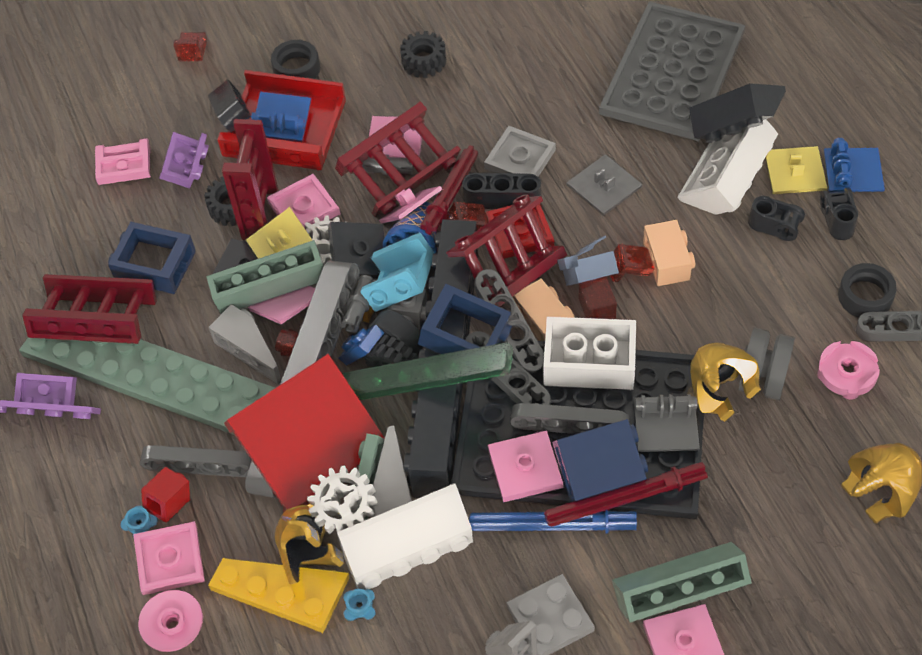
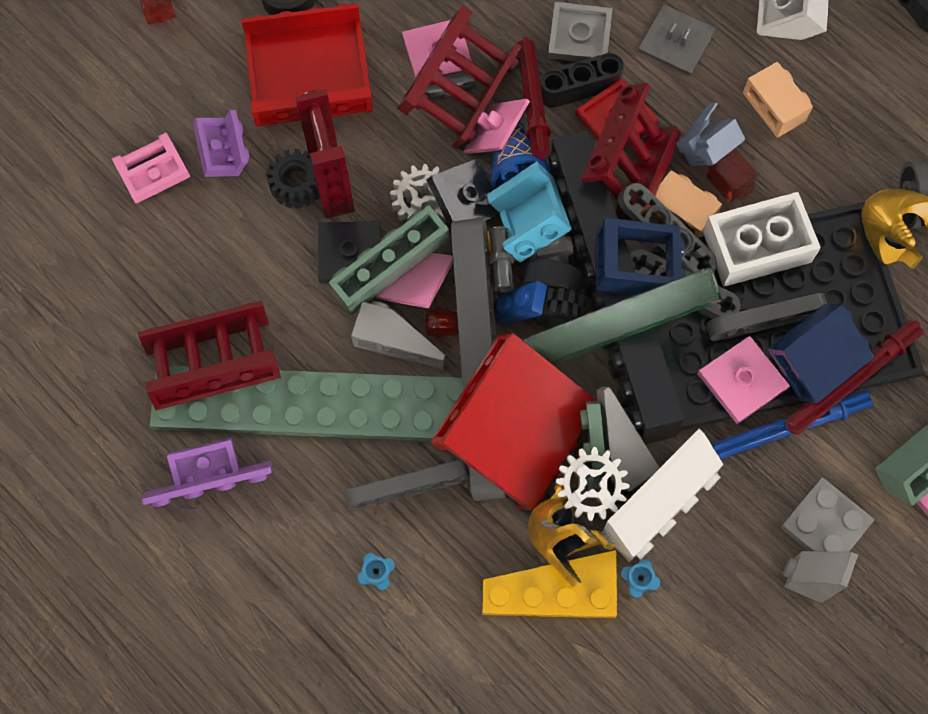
camera: 25 degrees left, 15 degrees up
(163, 610) = (464, 646): bright pink dish -> none
(165, 494) = (394, 533): red brick -> none
(168, 558) = (428, 599): bright pink plate -> none
(175, 266) = (232, 298): dark blue window -> none
(228, 104) = (245, 68): black beam -> none
(278, 235) = (378, 210): light yellow piece -> none
(282, 115) = (304, 62): blue hinge -> none
(306, 199) = (378, 159): bright pink plate -> none
(468, 212) = (562, 121): clear red bracket -> none
(632, 260) = (749, 117): clear red bracket -> none
(666, 423) = (861, 286): dark grey hinge -> none
(774, 217) = (869, 28): black piece -> none

